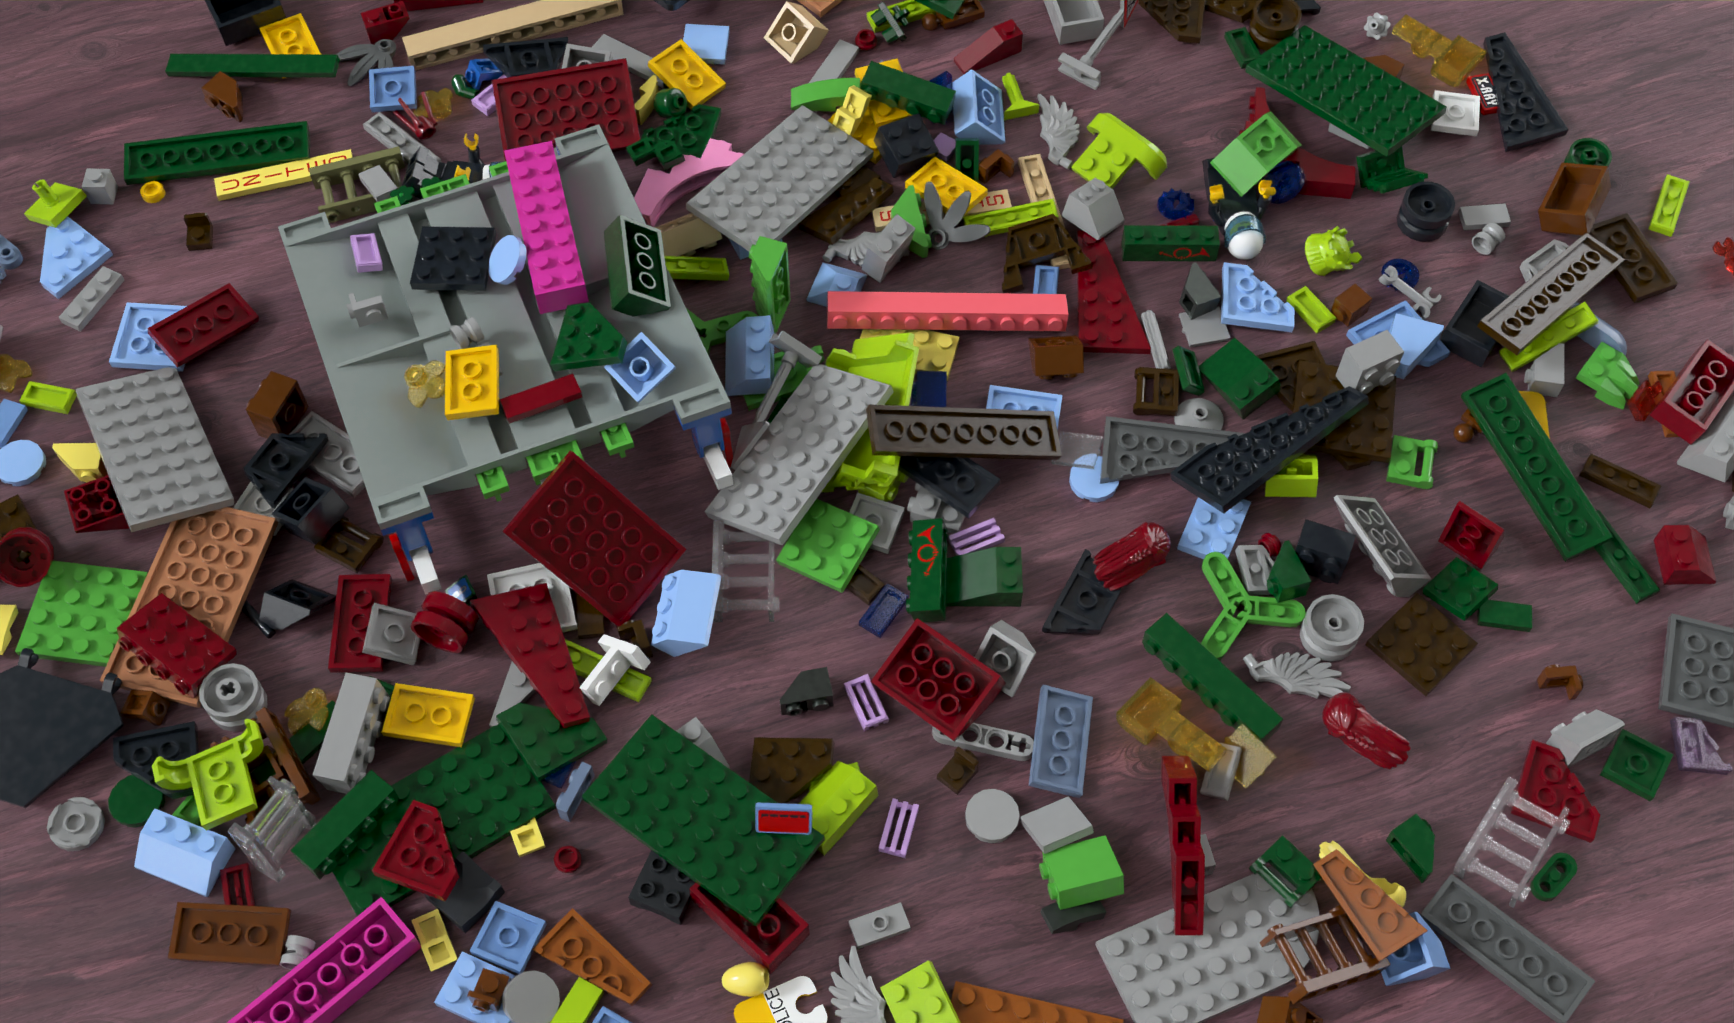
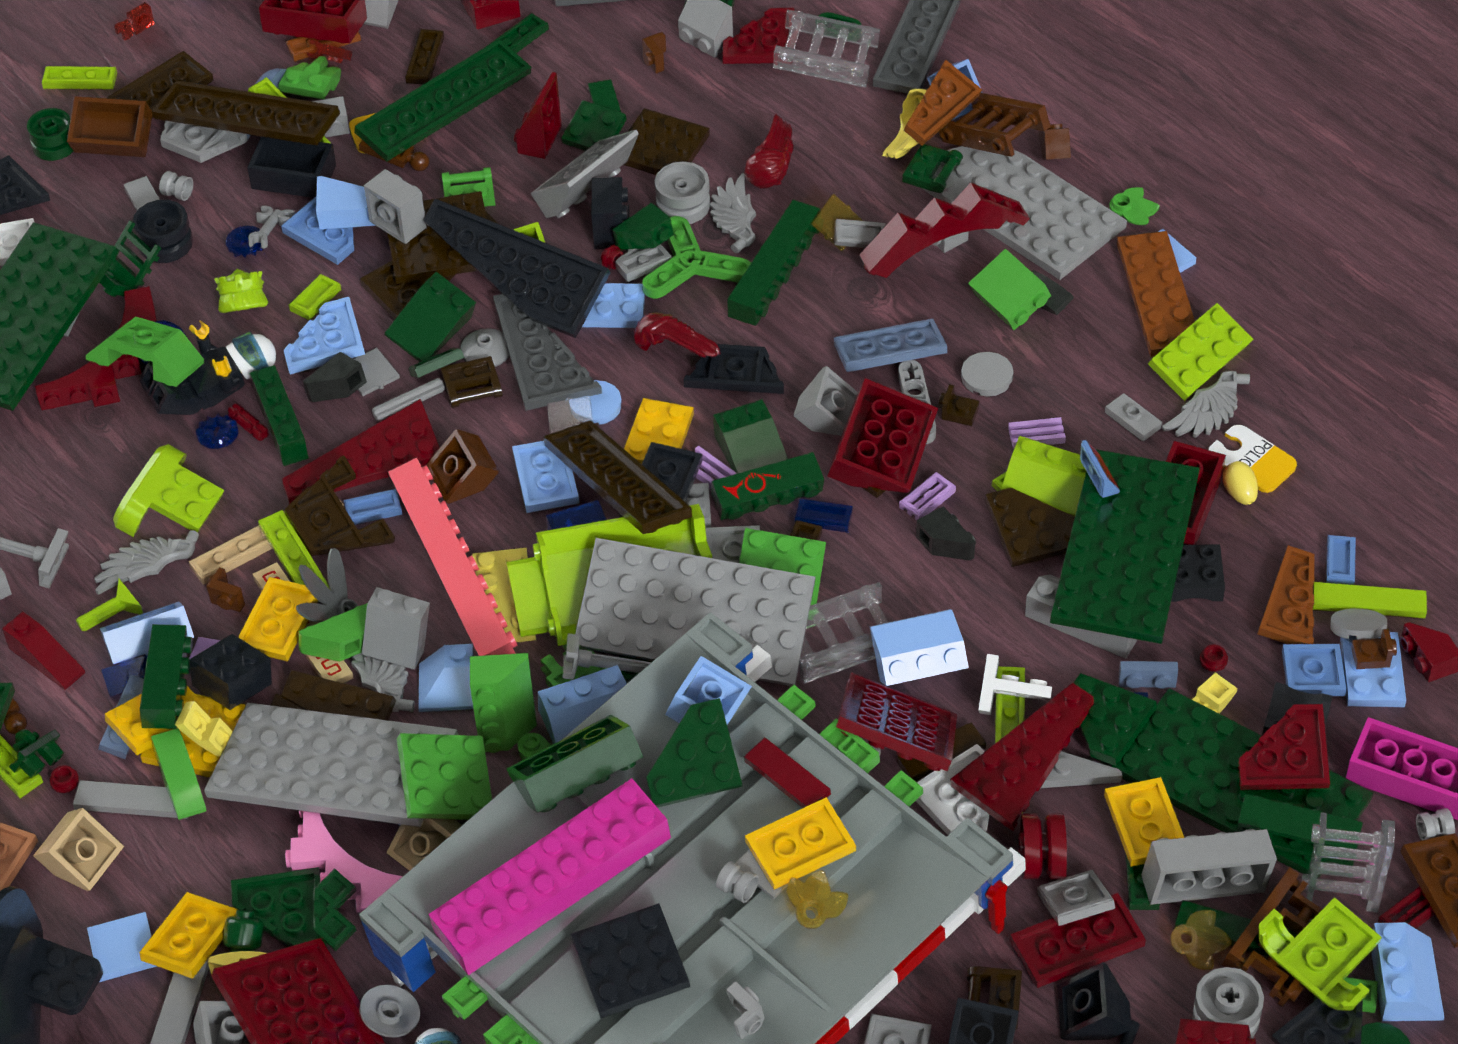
camera: 110 degrees left, 10 degrees down
(434, 940) = (1345, 733): light yellow slope -> none
(507, 259) = (621, 884): light blue tile -> none
(636, 632) = (961, 688): dark brown bracket -> none
(716, 229) = (443, 775): none -> bright green plate
(967, 157) = (220, 617): dark green slope -> none
(1035, 514) = (658, 423): none -> yellow plate
(1056, 825) = (975, 320): light grey tile -> none
(1094, 209) = (258, 488): light grey slope -> none
(1155, 712) = (832, 287): clear yellow plate -> none
(1351, 305) = (302, 264): reddish brown brick -> none
(1414, 845) = (859, 105): dark green slope -> none

